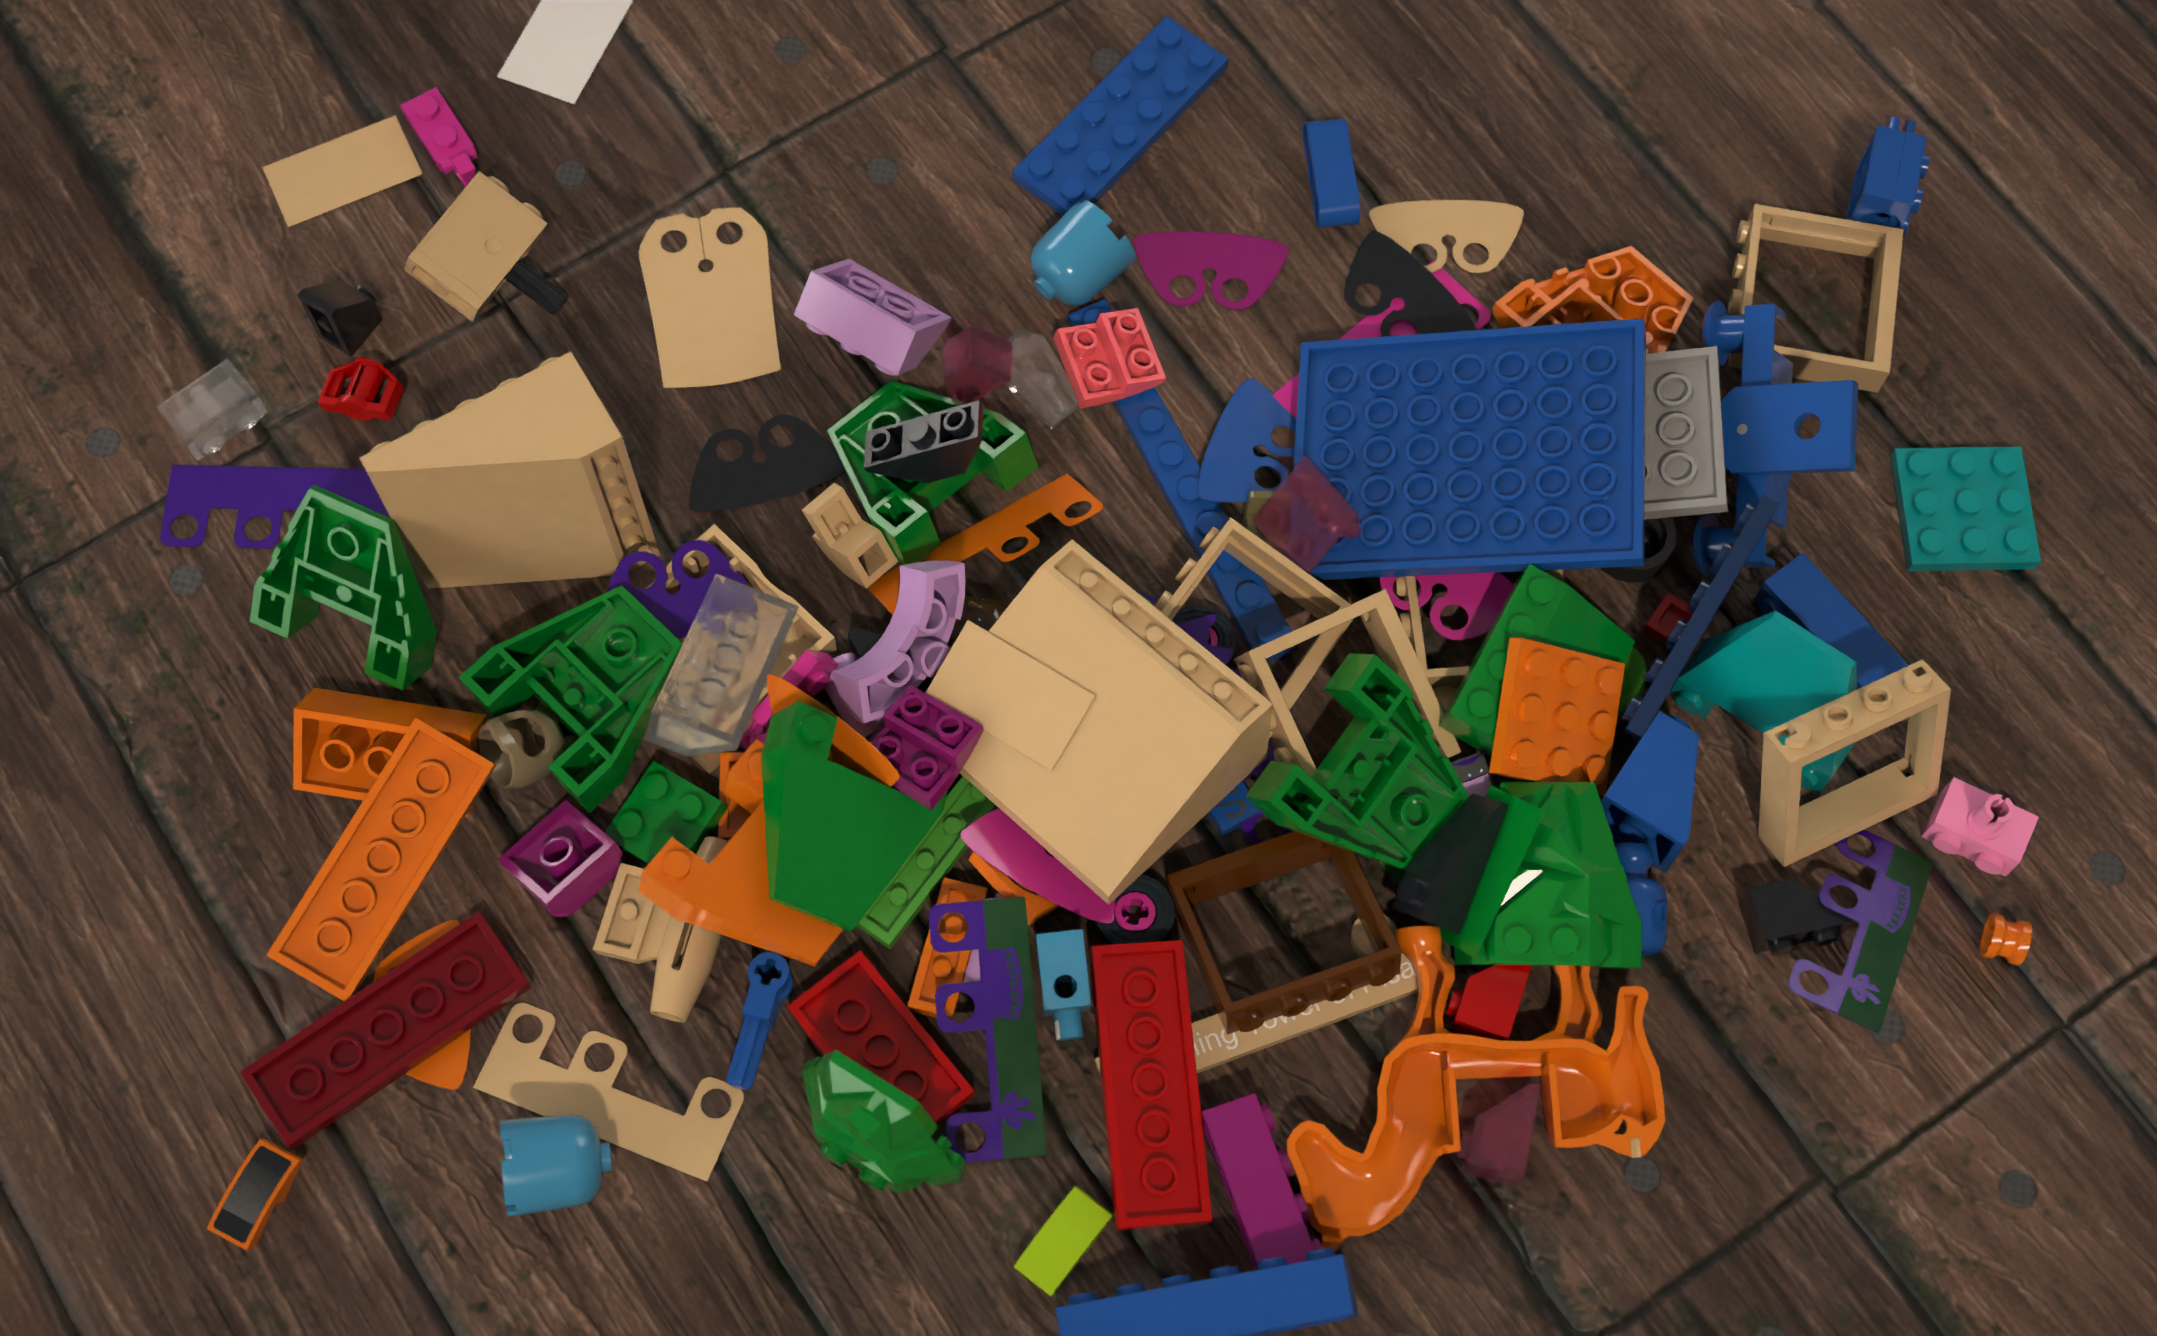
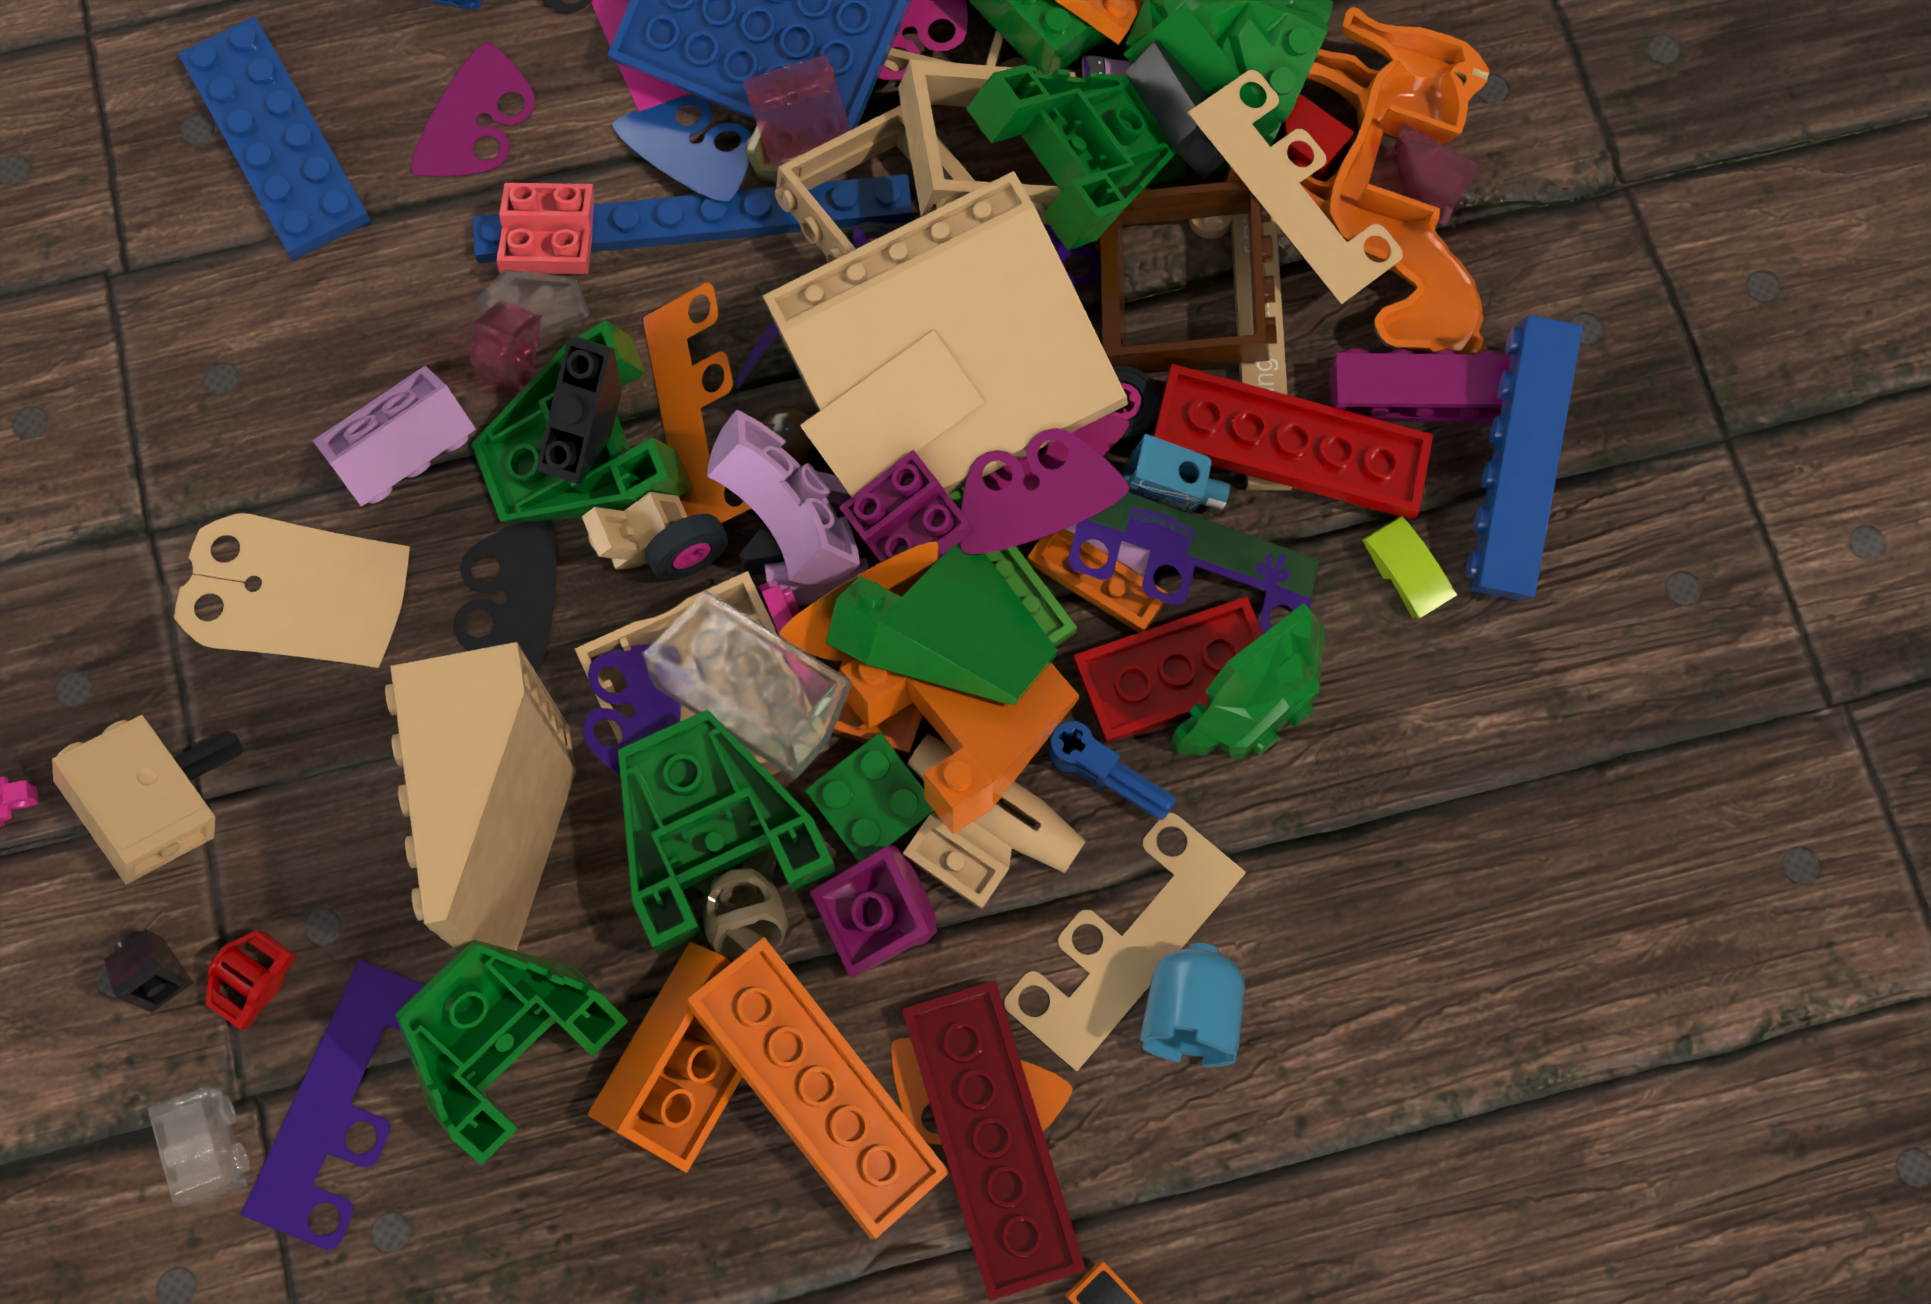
camera: 70 degrees left, 5 degrees up
(845, 581) = (686, 547): none -> black bush
(990, 877) = (1062, 499): none -> magenta piece
(1079, 256) = (420, 215): dark azure cylinder -> none
(1399, 973) = (1278, 188): none -> tan piece

